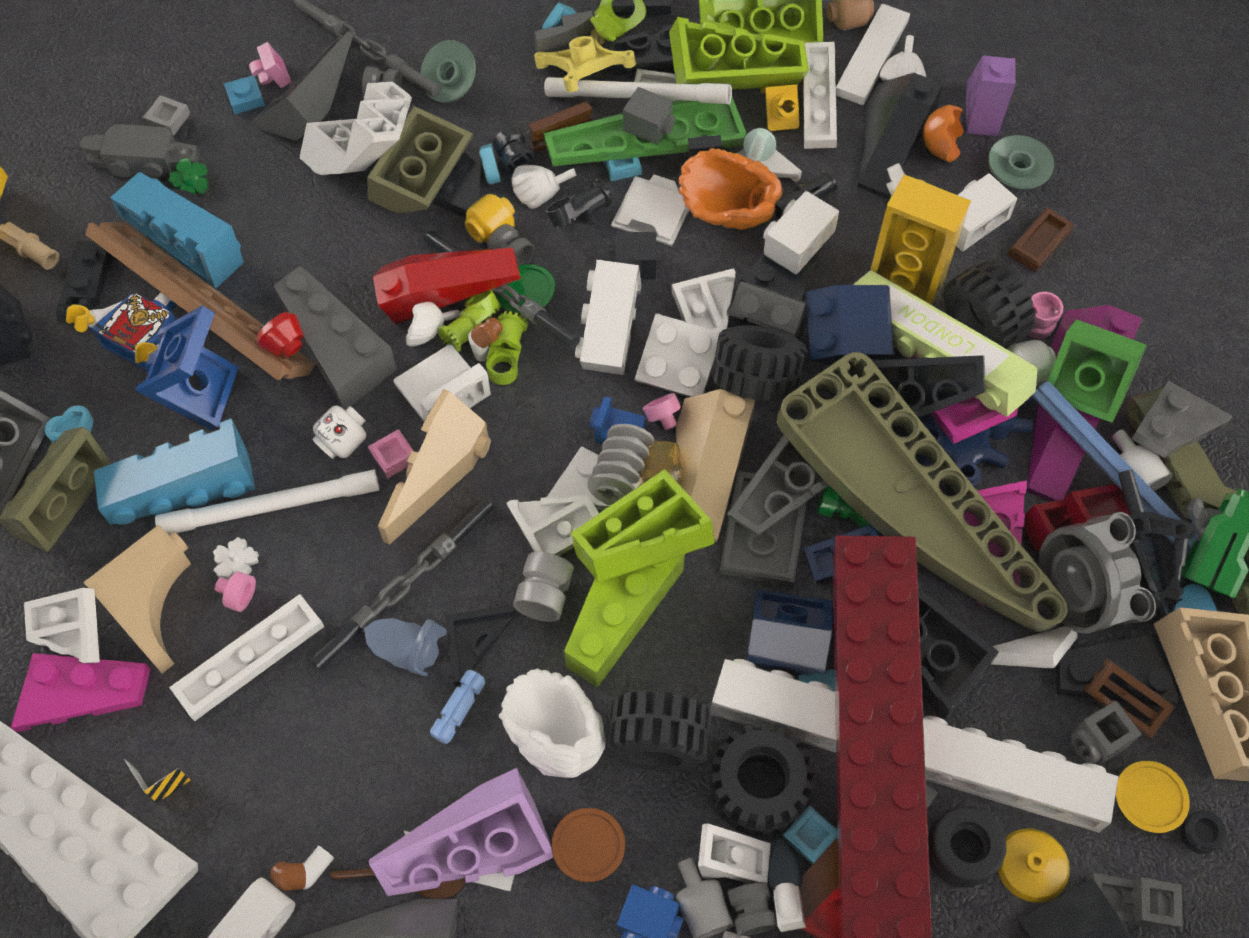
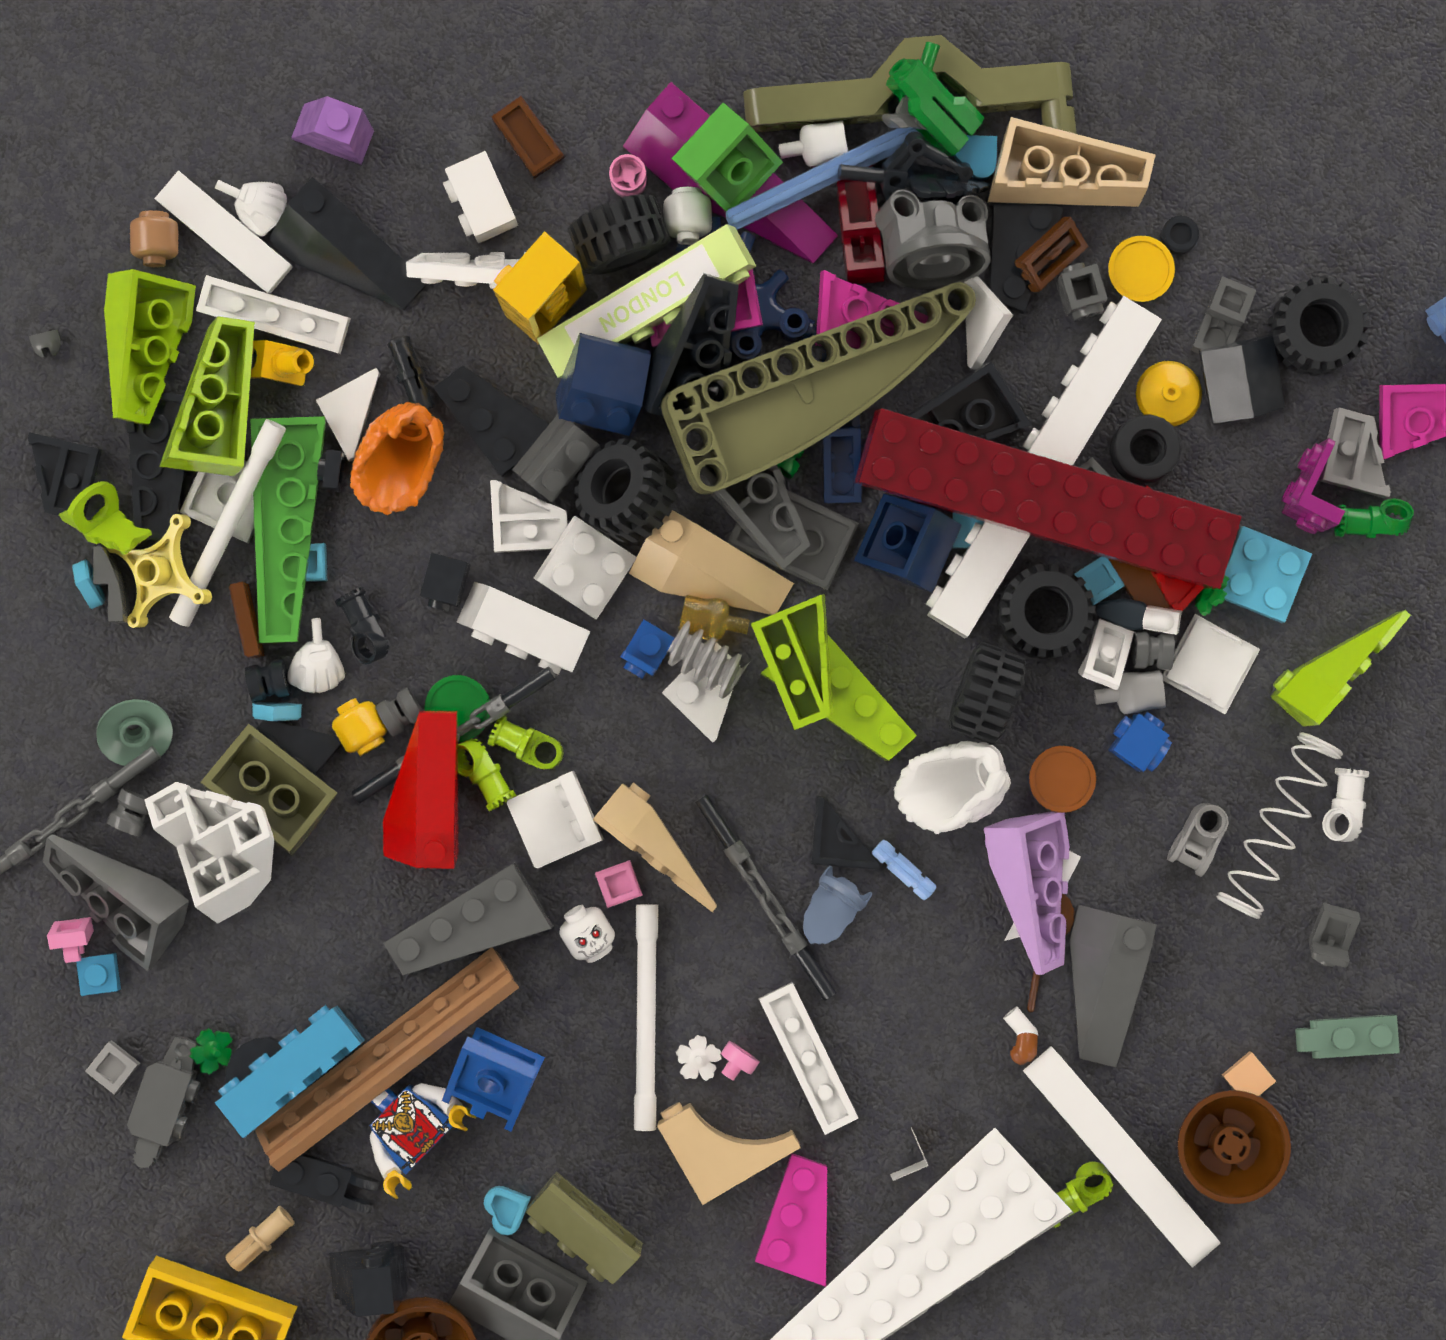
camera: 80 degrees left, 25 degrees up
(65, 624) = (736, 1227): white wing -> none
(175, 476) = (602, 1107): dark azure wedge -> none
(281, 335) = (474, 974): red cone -> none
(426, 323) = (478, 819): white piece -> none
(482, 336) = (516, 763): dark orange arm -> none
(543, 587) = (810, 764): light grey wheel -> none
(551, 521) = (743, 737): white wing -> none
(648, 116) = (279, 521): dark grey brick -> none
(652, 207) = (380, 546): white piece -> none
(663, 410) = (640, 600): bright pink tile -> none
(759, 144) = (338, 407): light aqua plate -> none
(800, 232) = (472, 398): white brick -> none
(941, 132) = (367, 198): orange hair -> none
(1021, 162) = (422, 106): sand green dish -> none
(1178, 420) = (793, 95): flat silver wing -> none

